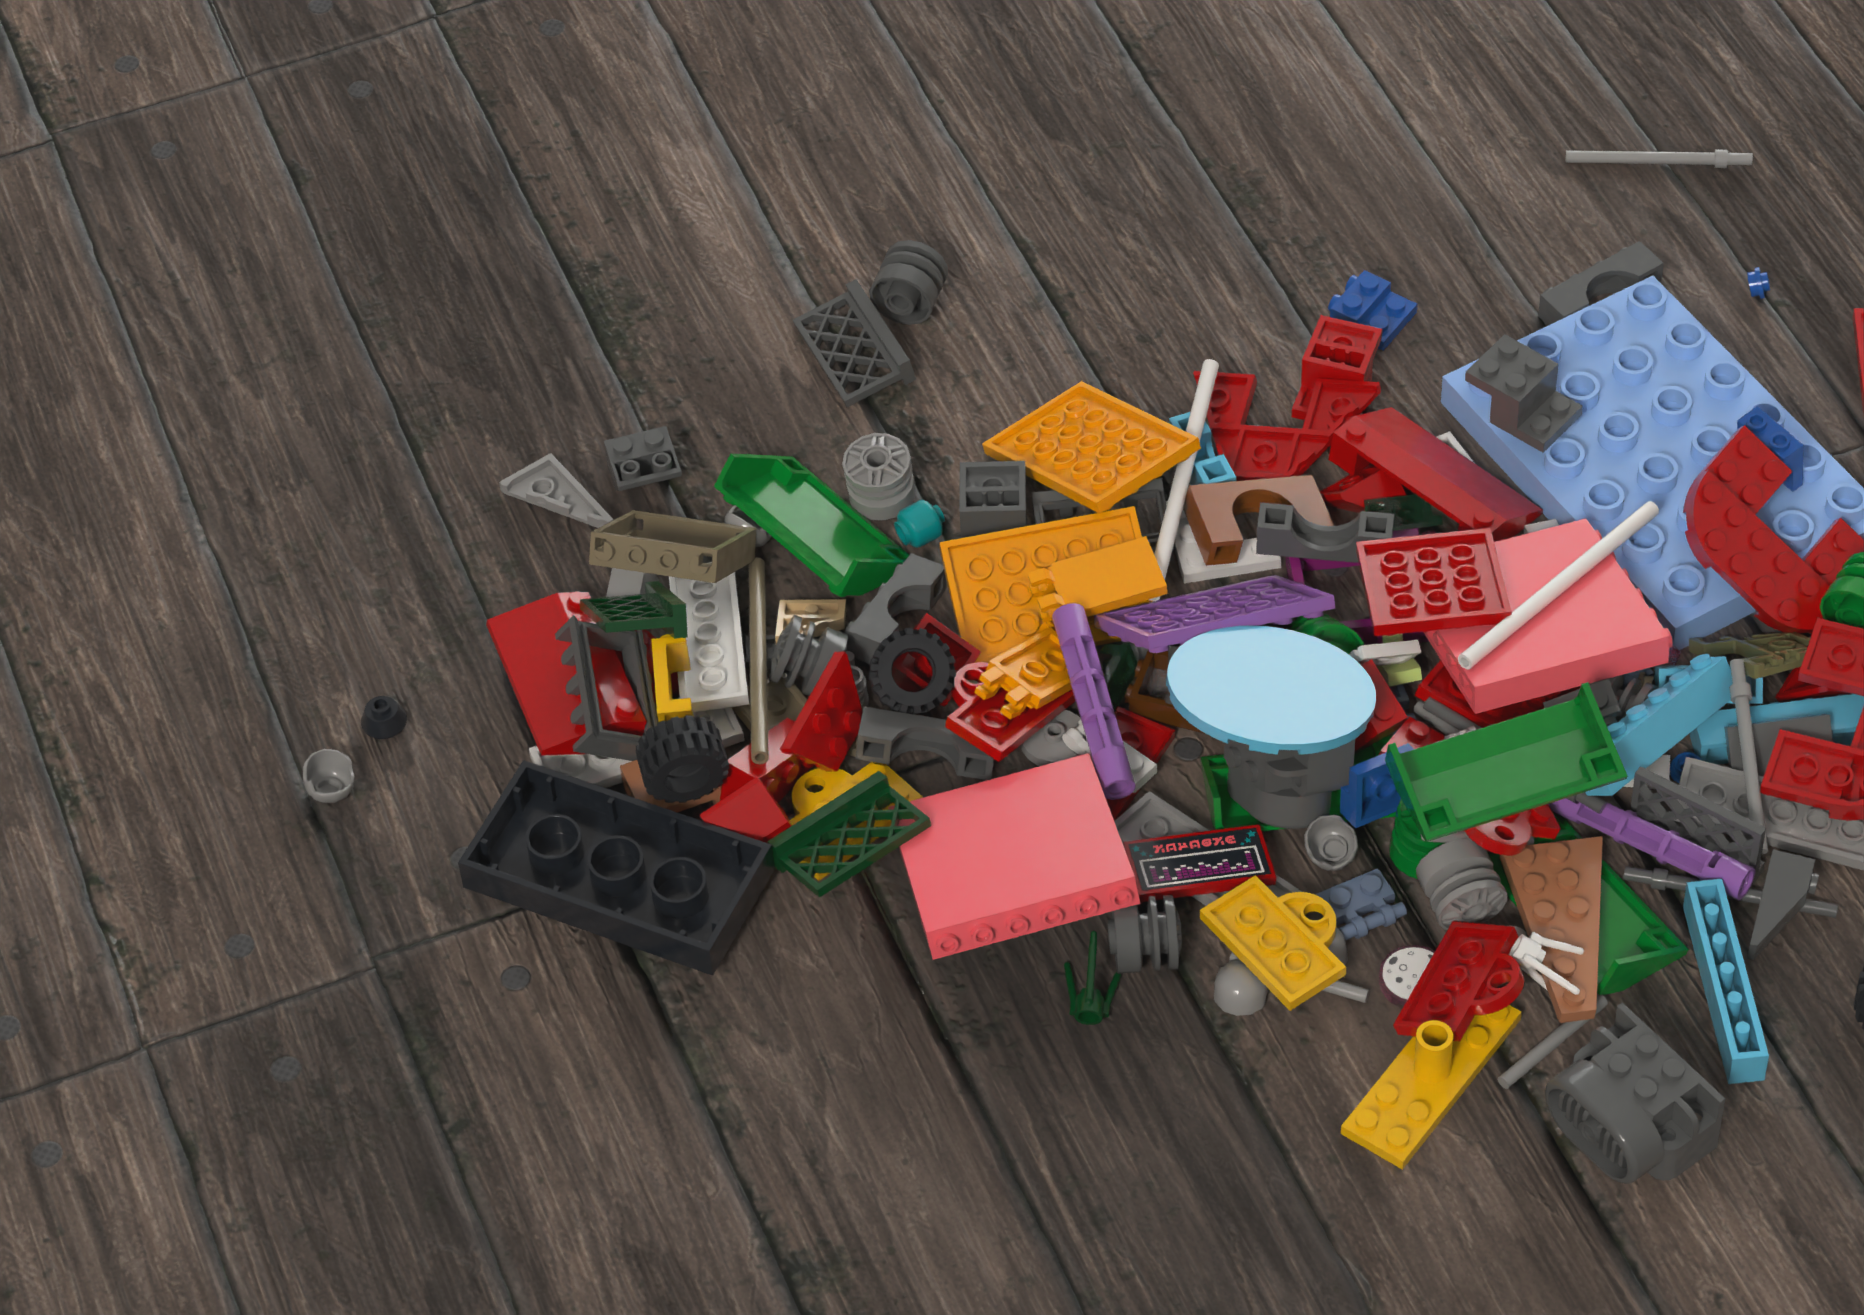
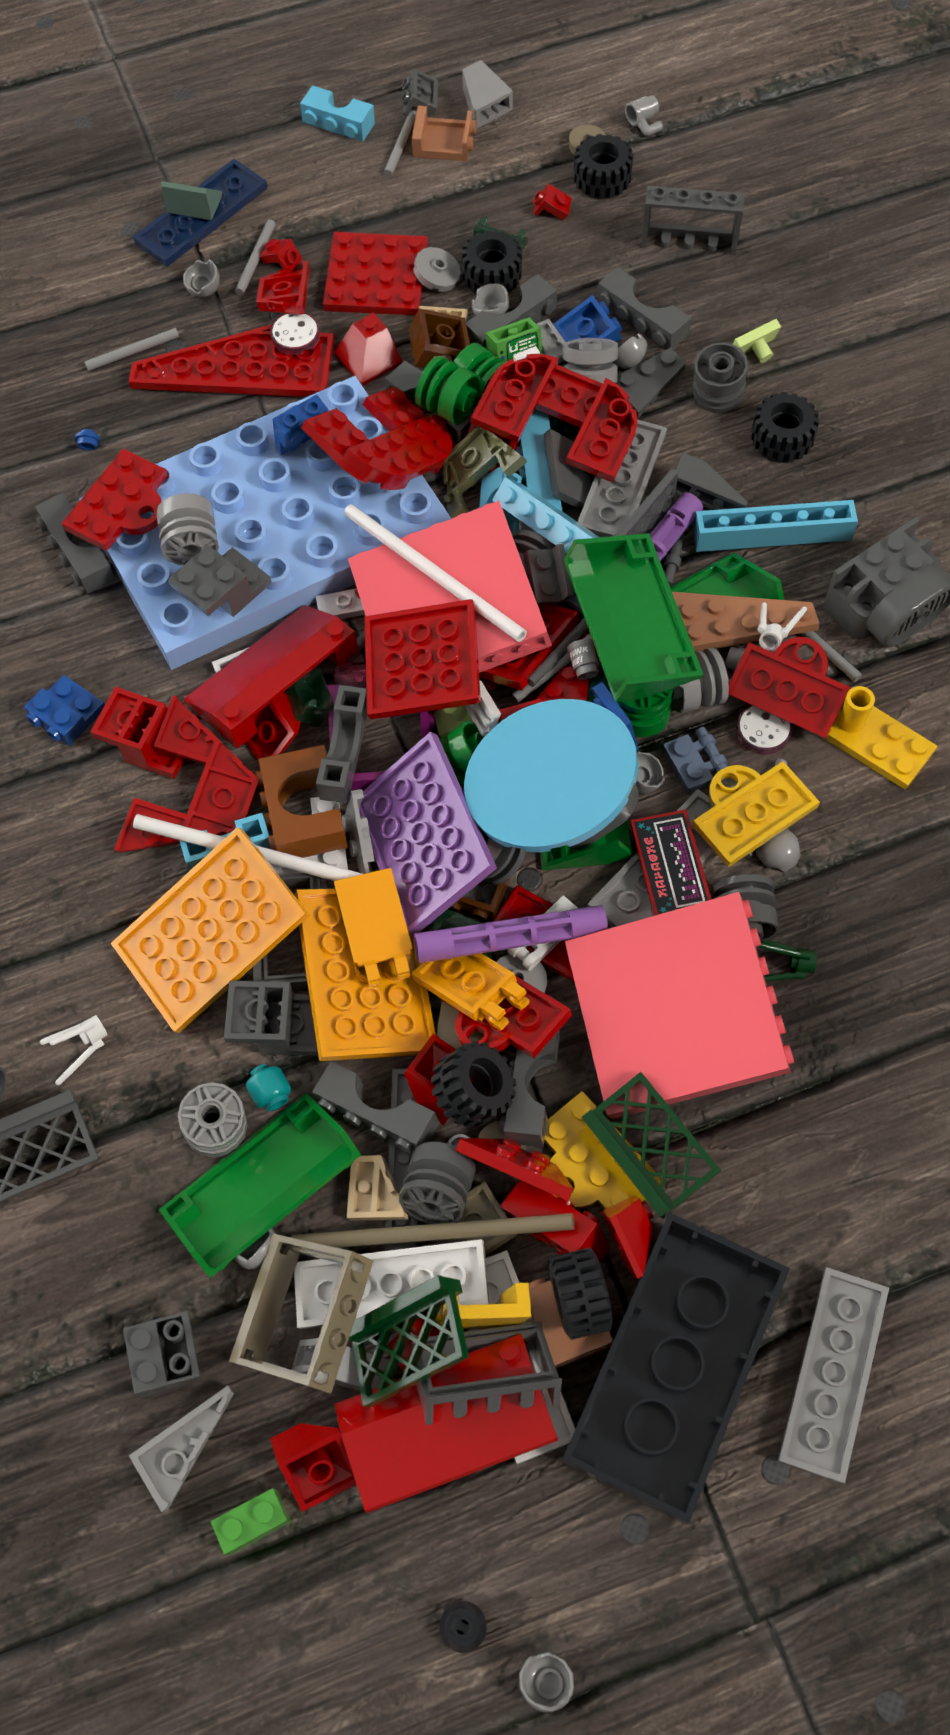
camera: 90 degrees left, 15 degrees up
(486, 548) = (251, 1522): none -> bright green brick
(534, 578) = (313, 1463): none -> red slope
(609, 1022) = (833, 1376): none -> light grey plate
(979, 375) = (89, 1031): none -> white plant
(1235, 569) = (358, 829): none -> light grey wing
(1589, 352) = (185, 527): none -> light grey wheel
(1639, 300) = (118, 502): none -> red plate
(1741, 695) = (536, 475): light grey bar -> none

